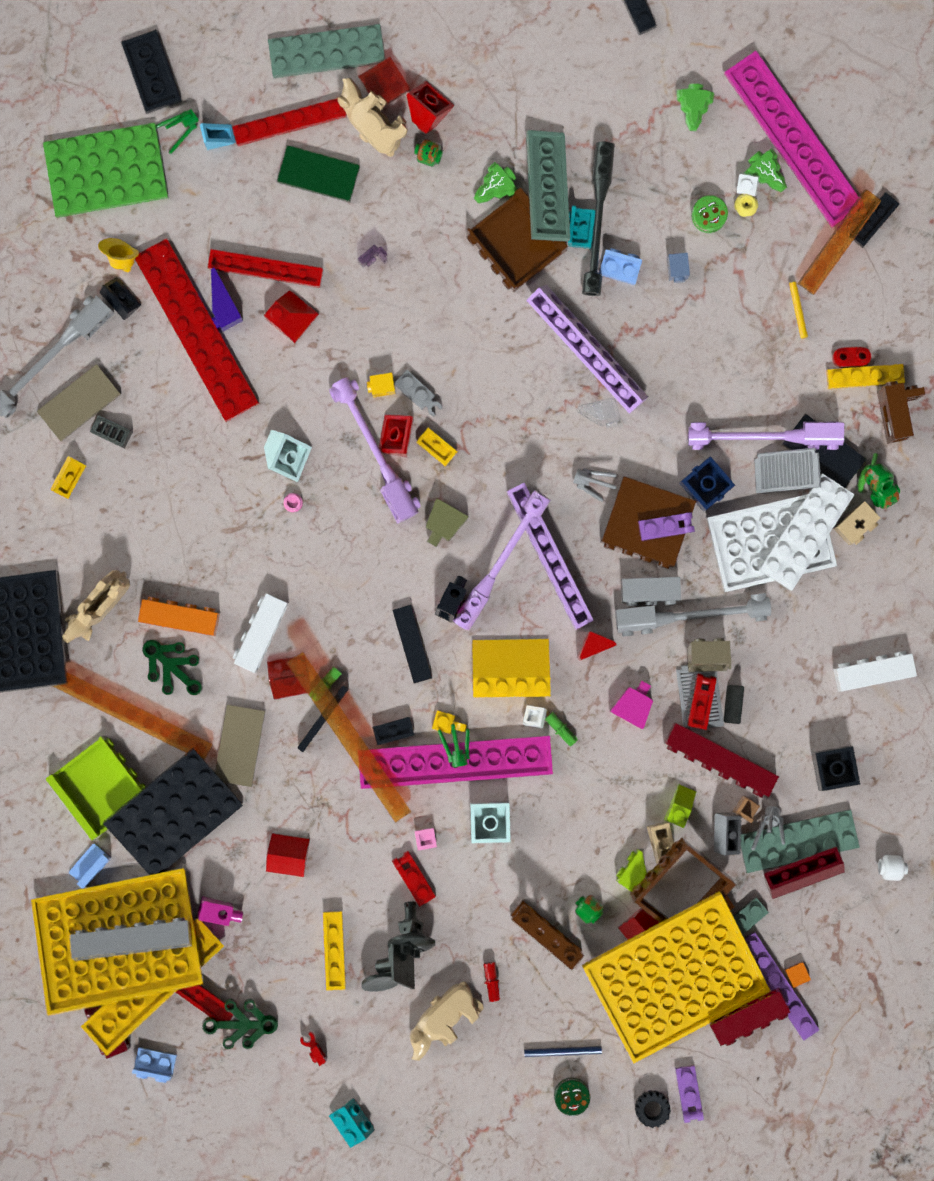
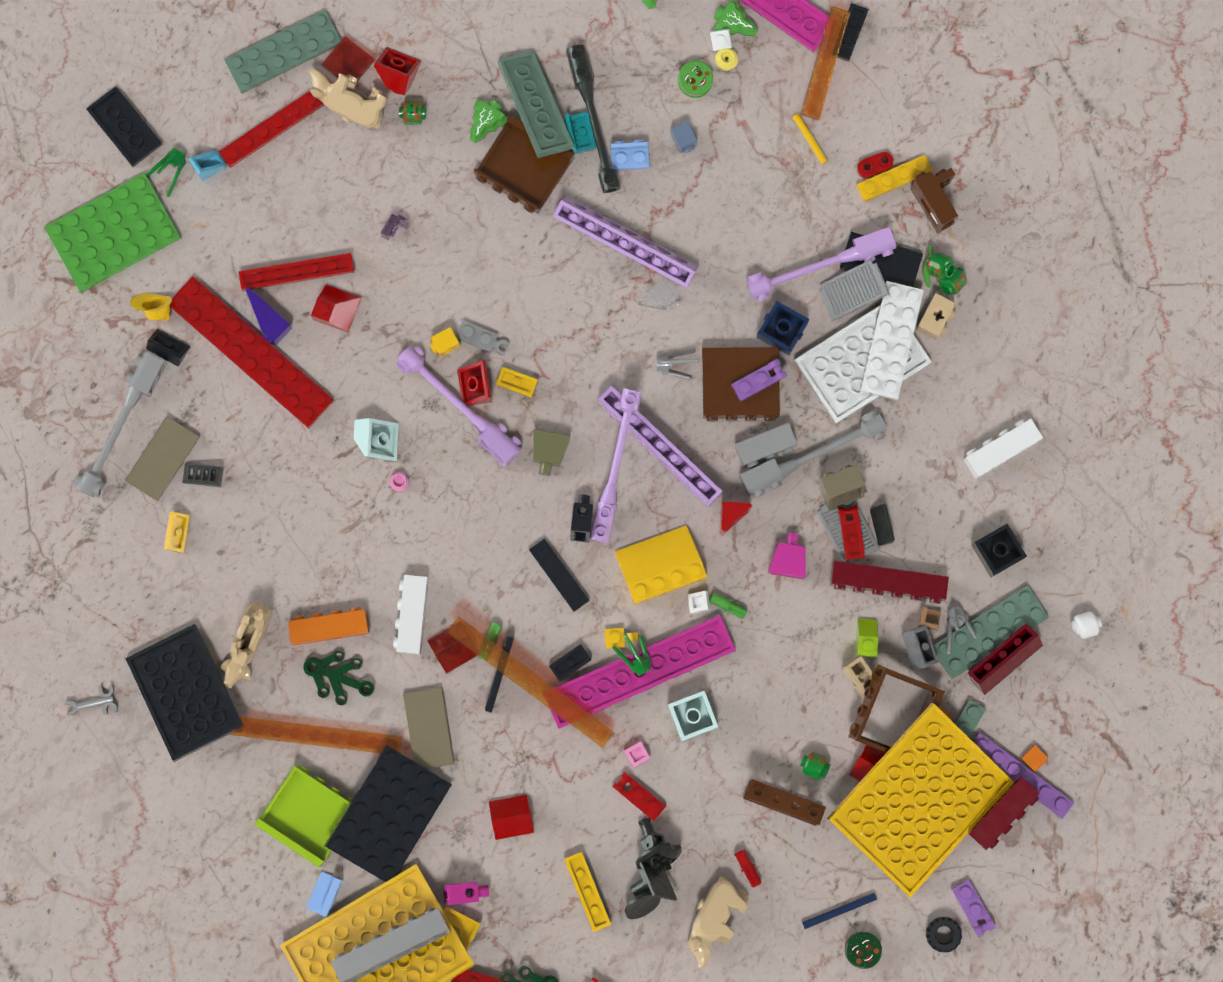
camera: 20 degrees left, 5 degrees down
(318, 173) = (315, 167): dark green tile -> none
(633, 872) = (844, 715): lime slope -> none

